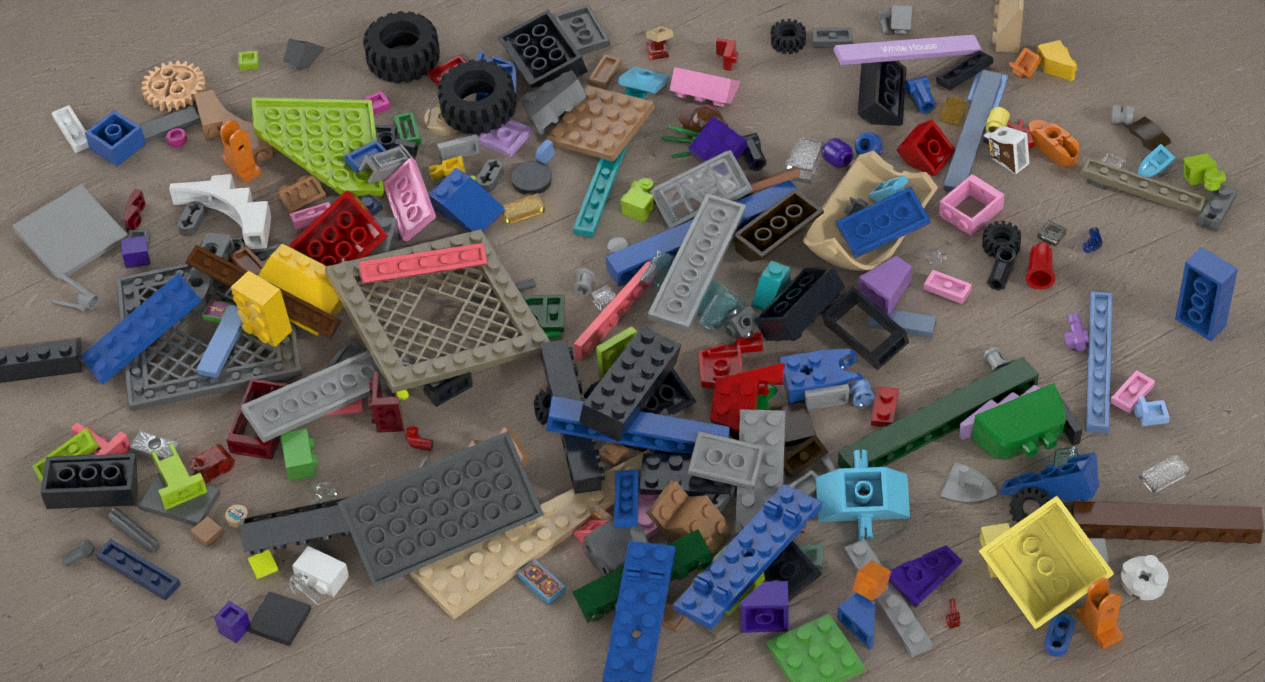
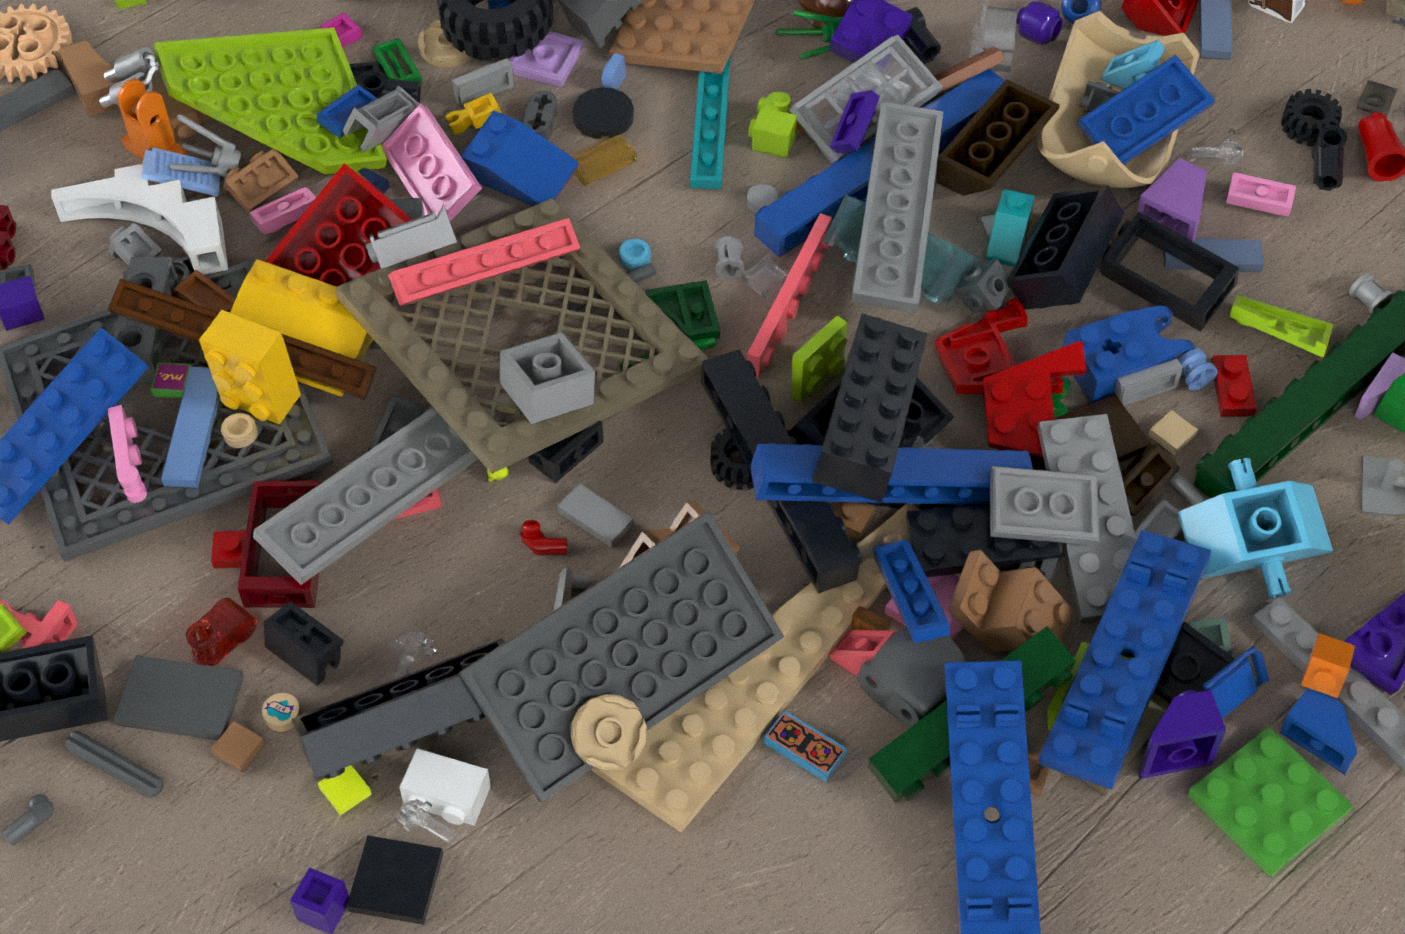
camera: 15 degrees left, 5 degrees up
(138, 569) = (137, 832): dark blue plate -> none
(147, 442) = (117, 616): tile -> none
(176, 137) = (43, 119): dark pink tile -> none
(178, 483) = (170, 668): lime piece -> none
(179, 351) = (126, 454): none -> bright pink plate
(195, 219) = (88, 239): dark grey beam -> none
(213, 224) = (132, 243): none -> light grey bracket
(226, 417) = (227, 548): none -> red plate
(234, 112) = (130, 67): none -> light grey piece
(249, 347) = (239, 430): none -> tan tile
(258, 477) = (302, 642): none -> black hinge
(259, 183) = (157, 168): none -> light blue window
(281, 177) = (223, 158): none -> light grey plant
(298, 454) = (359, 594): bright green brick -> none
(379, 243) = (411, 239): none -> light grey window
(386, 411) = (482, 505): dark red bracket -> none
(421, 553) = (608, 732): none -> tan tile
(437, 339) = (547, 377): none -> light grey brick
(454, 429) = (595, 515): none -> light grey tile
(525, 271) = (634, 254): none -> medium azure tile
(690, 199) = (854, 121): none -> dark purple plate
(815, 585) = (1236, 681): none -> blue piece
(834, 430) = (1173, 432): none -> tan tile
(930, 373) = (1286, 325): none -> lime wing
(980, 191) = (1249, 49): bright pink window -> none

